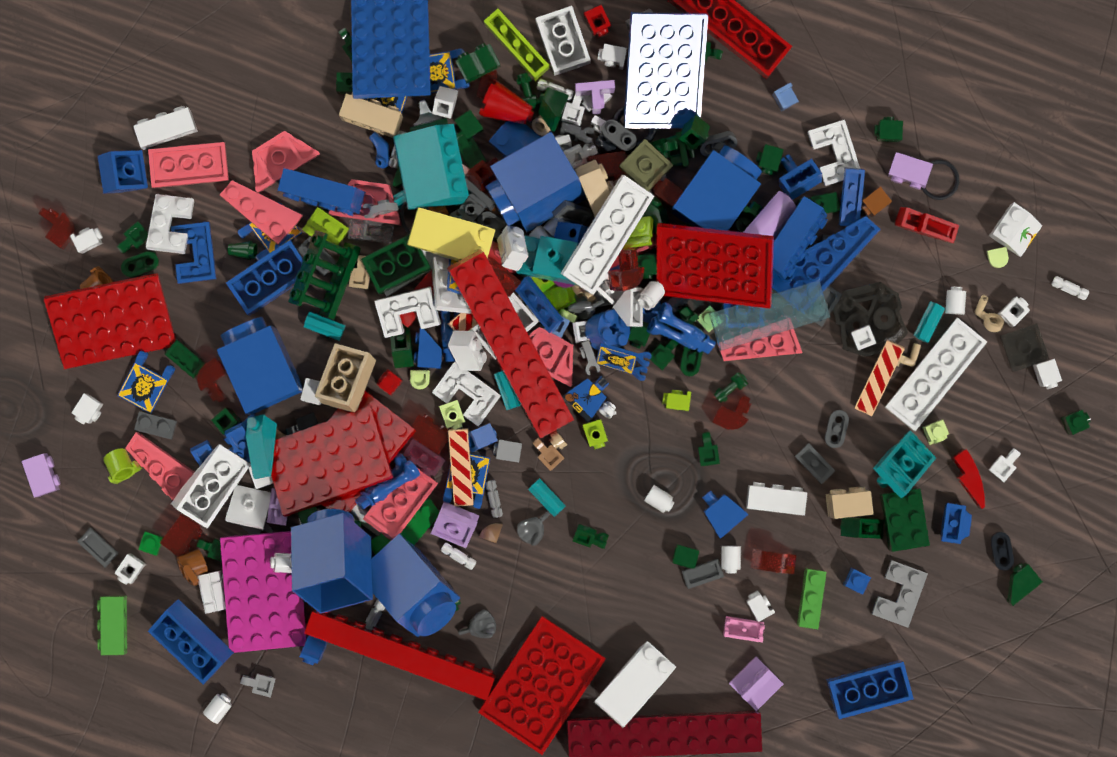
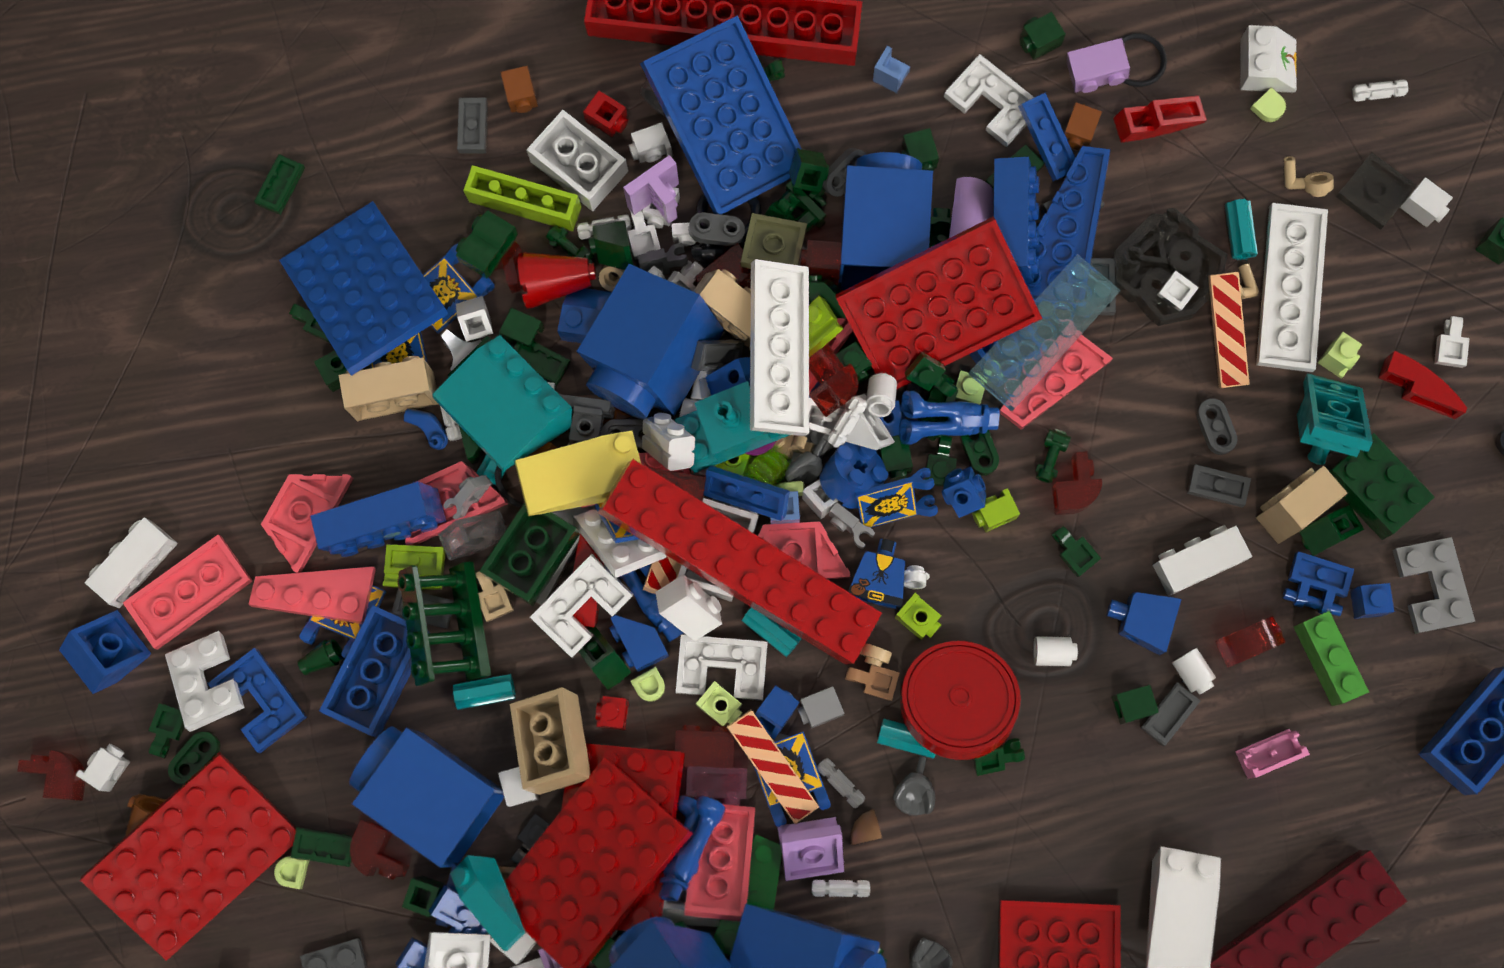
camera: 25 degrees left, 10 degrees down
(143, 385) = (288, 917): flag -> none
(159, 361) = (291, 872): none -> yellowish green tile
(482, 174) = (572, 377): clear red brick -> none
(588, 494) = (960, 700): none -> red brick
(620, 299) = (847, 421): none -> white axle
(665, 378) = (964, 491): none -> blue brick
(687, 299) = (929, 372): none -> dark green plate
(755, 683) = (1333, 815): lavender bracket -> none
(759, 606) = (1271, 711): white brick -> none
(799, 178) = (972, 152): blue brick -> none
(838, 548) = (1320, 575): none -> blue plate
(955, 301) = (1256, 185): white brick -> none
(955, 523) = (1440, 454): blue slope -> none
(1022, 309) = (1341, 148): white brick -> none

